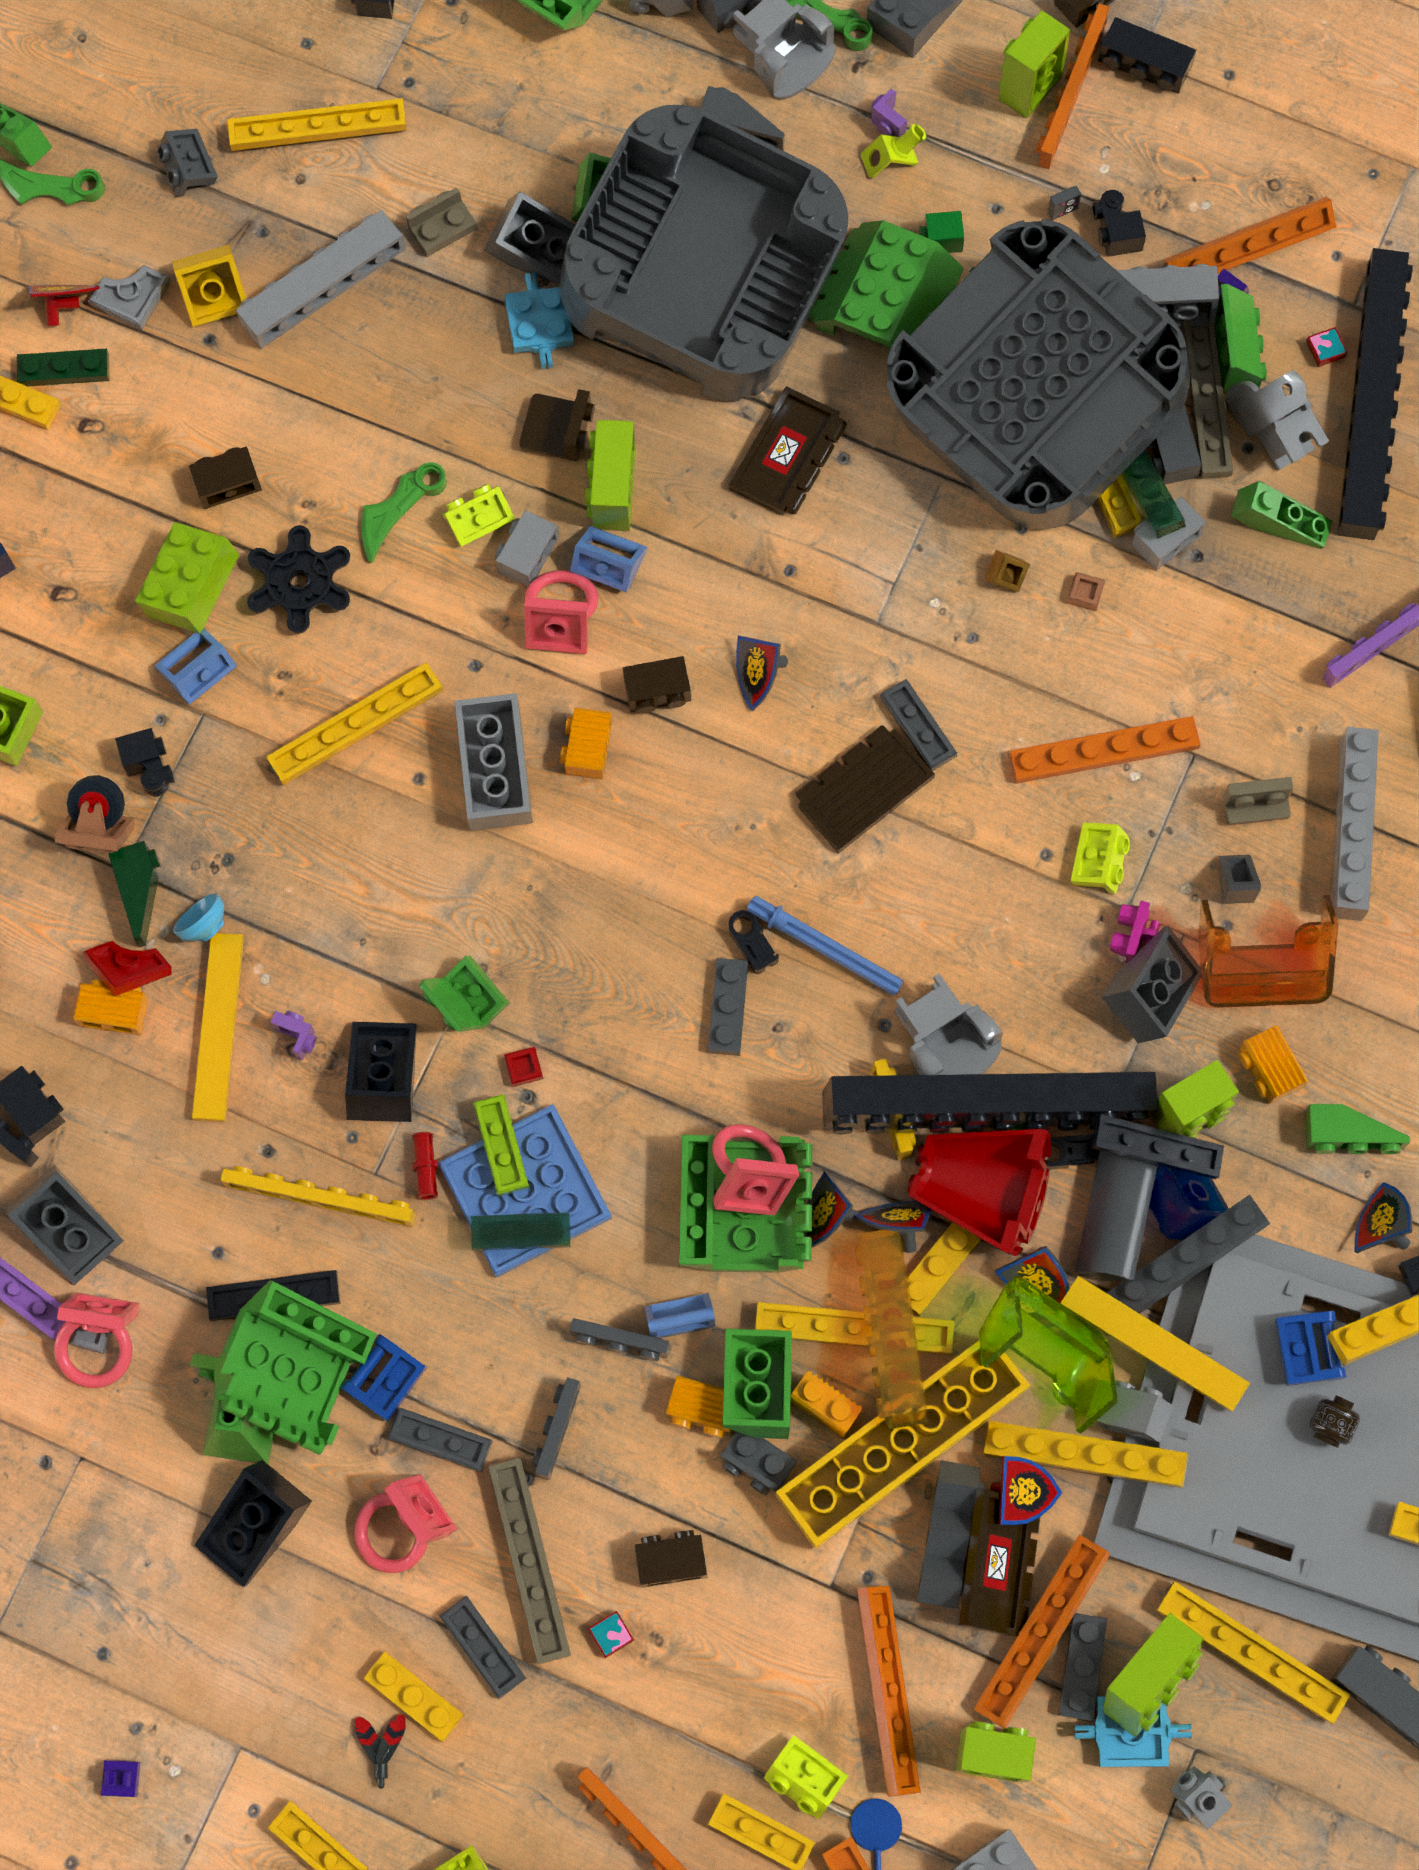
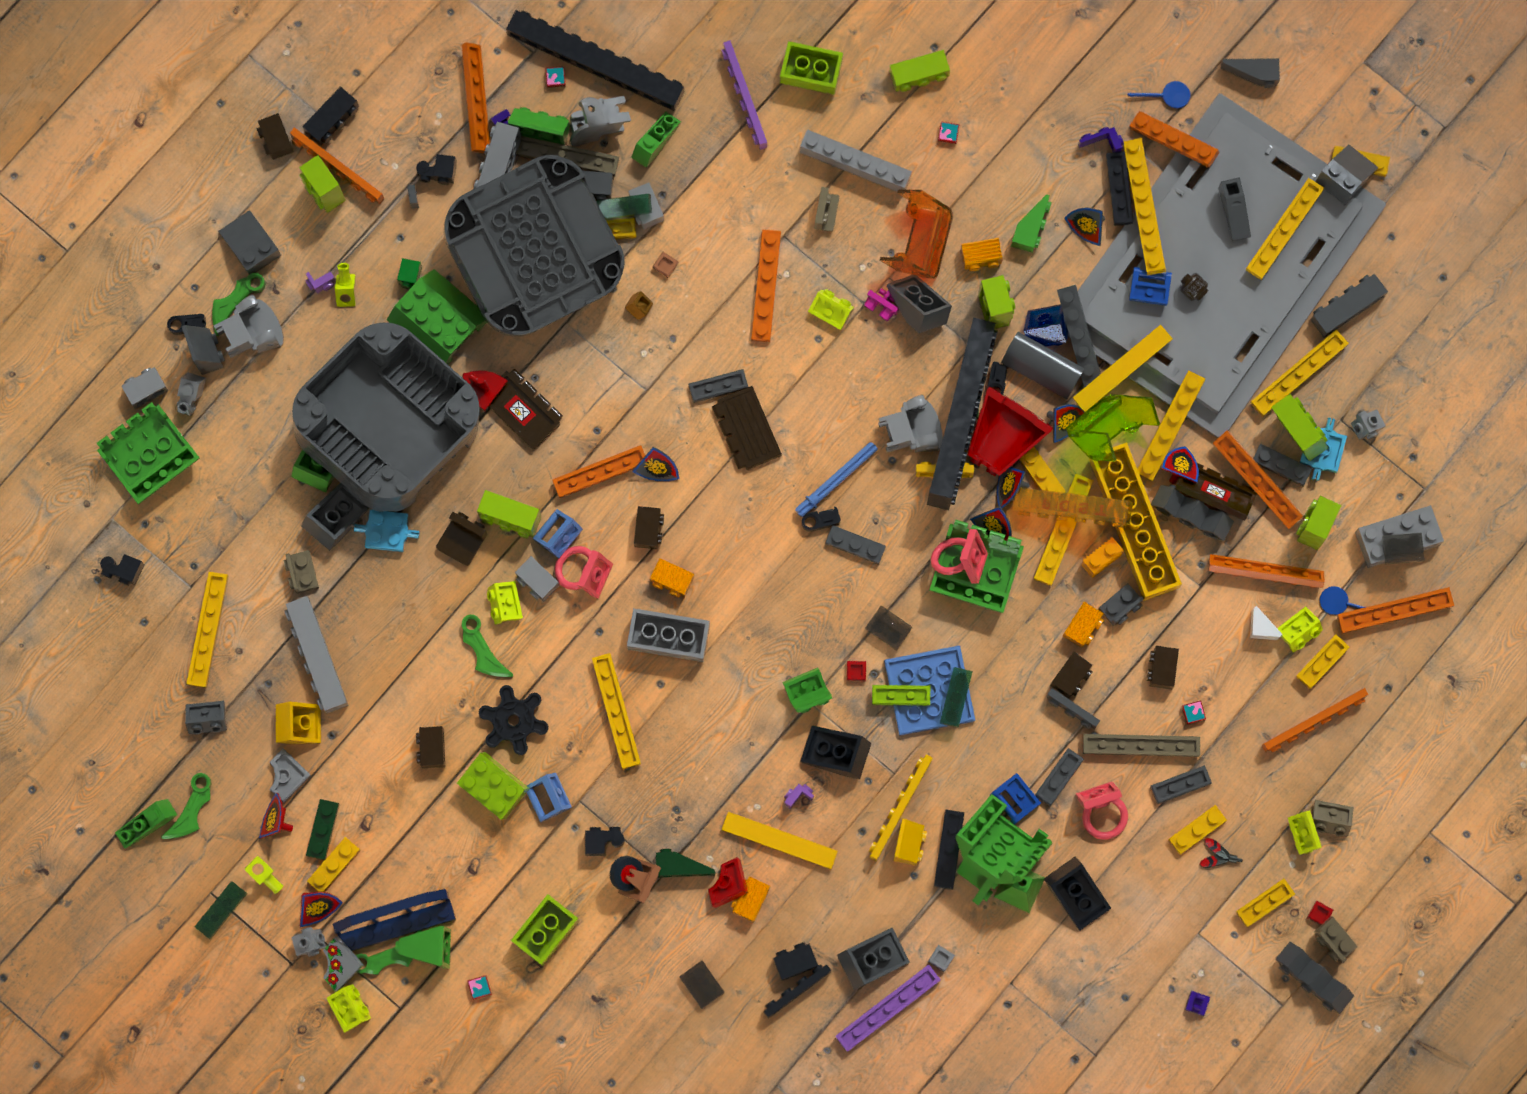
camera: 75 degrees left, 5 degrees up
(98, 1316) = (935, 948): coral tile -> none
(201, 919) = (709, 834): medium azure piece -> none
(262, 1224) = (909, 842): none -> yellow slope
(425, 1165) = (899, 742): red pin -> none
(606, 1095) = (888, 628): none -> clear smoke plate
(613, 1411) = (1071, 675): none -> dark brown brick
(619, 1340) = (1033, 660): dark grey plate -> none
(680, 1316) = (1028, 622): medium blue tile -> none
(722, 586) = (598, 472): none -> orange plate
(737, 112) = (289, 375): dark grey slope -> none
(757, 1382) = (1081, 588): bright green slope -> none
(789, 1708) = (1262, 627): none -> white slope
(802, 386) = (486, 385): none -> red shield
(1137, 1413) = (1157, 387): light grey brick -> none
(1157, 1146) = (1015, 330): black plate -> none
(1238, 879) = (866, 236): dark grey slope -> none

